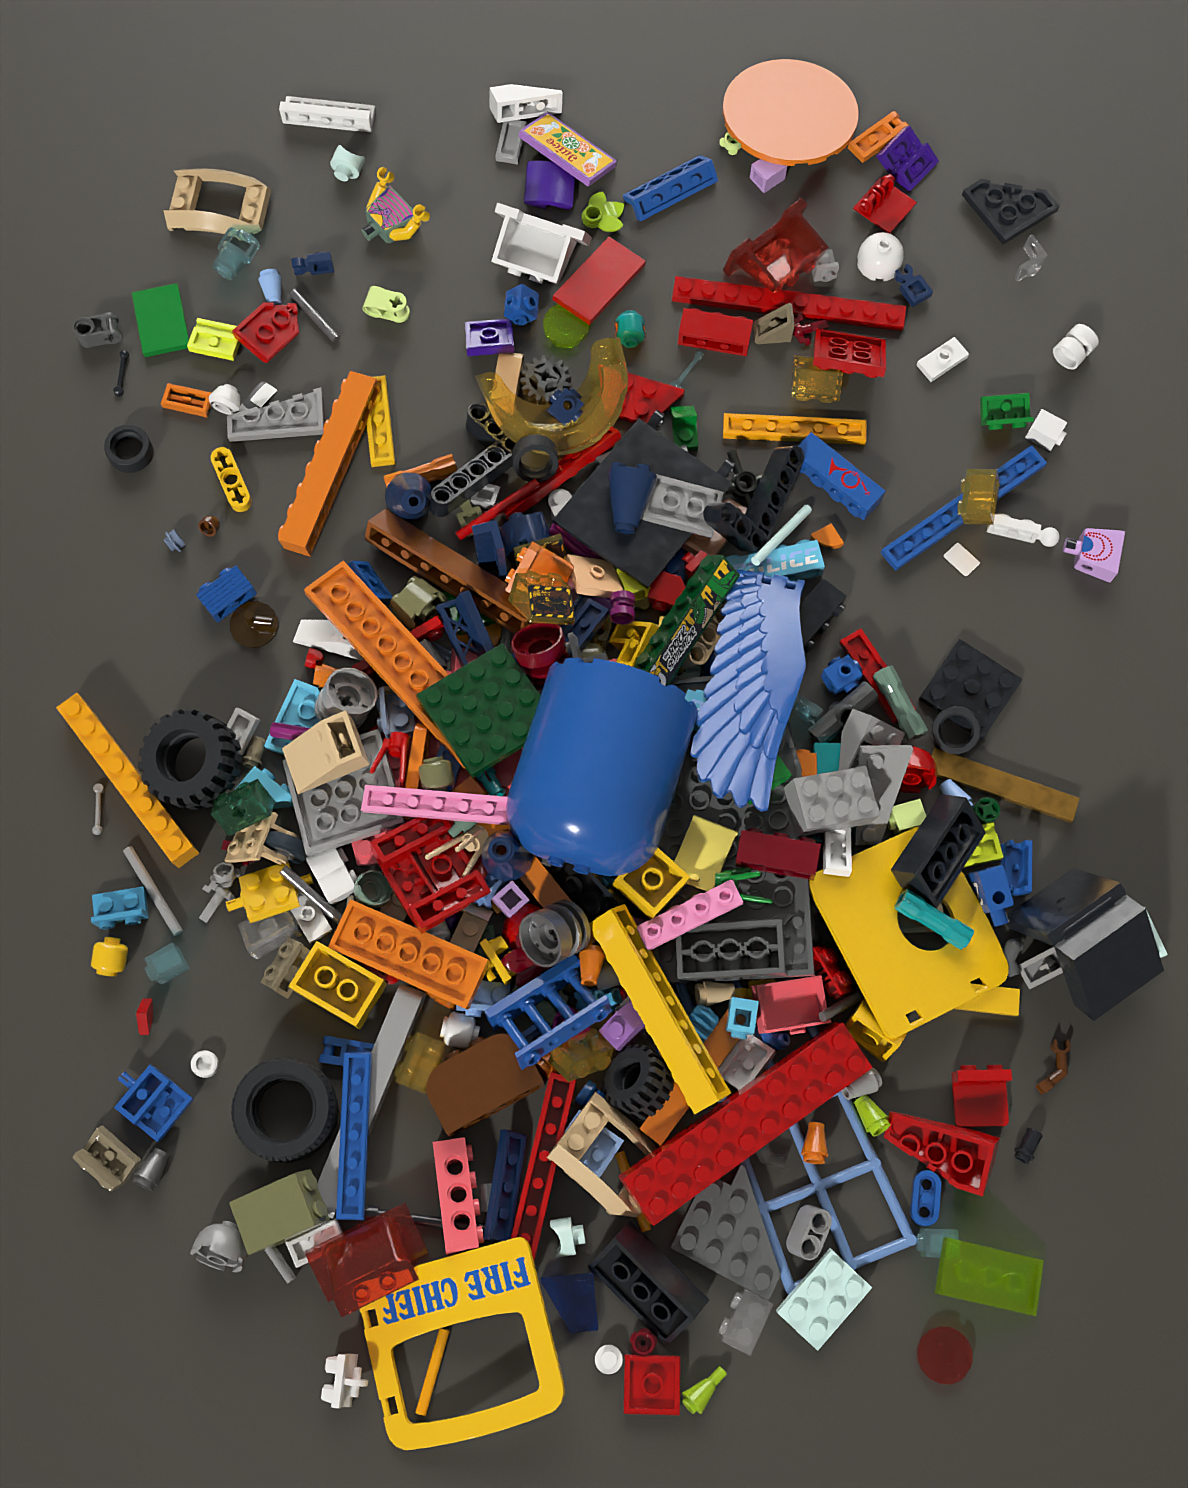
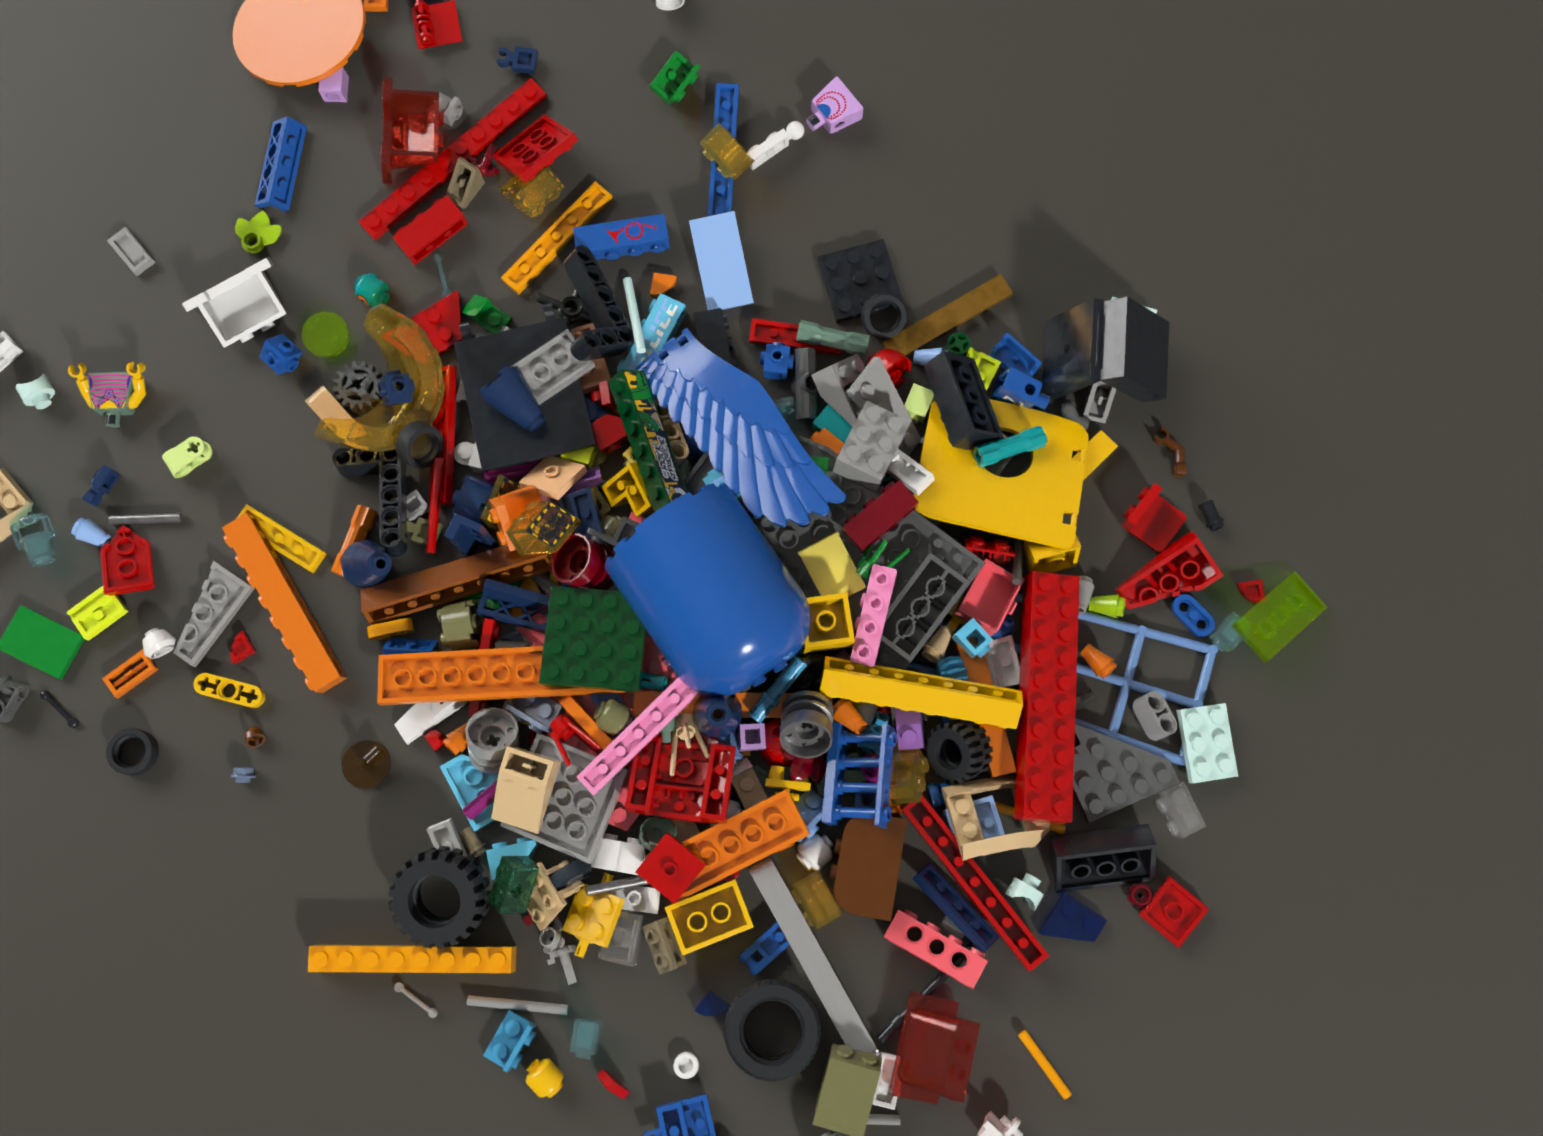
camera: 50 degrees left, 5 degrees up
(225, 593) = (323, 766): blue brick -> none
(258, 396) = (176, 616): white sticker -> none
(268, 1045) = (711, 1005): none -> clear blue tile
(271, 462) = (241, 648): none -> red tile
(351, 919) = (671, 867): none -> red plate
(354, 1136) = (834, 991): blue tile -> none
(373, 556) = (390, 629): none -> light orange beam
(453, 1291) = (1002, 1006): yellow door -> none
(489, 337) = (285, 399): dark purple tile -> none
(523, 102) = (105, 218): white slope -> none
(548, 185) = (196, 252): dark purple slope -> none
(567, 149) = (178, 214): tile -> none
(572, 887) = (772, 696): none -> dark azure pin
(599, 280) = (311, 280): tile -> none
(608, 1359) = (1132, 929): white plate -> none
(622, 604) = (596, 475): magenta wheel -> none
(699, 1395) = (1205, 884): lime cone -> none
(726, 142) = (280, 94): yellowish green plate -> none
(880, 256) = (475, 62): white cylinder -> none
(886, 566) = (721, 261): none -> light blue tile
(942, 359) = (595, 88): white plate -> none
(944, 1355) = (1305, 691): clear red tile -> none
(961, 559) = (758, 205): white sticker -> none
(993, 1234) = (1251, 590): none -> red tile
(1047, 430) = (714, 63): white brick -> none

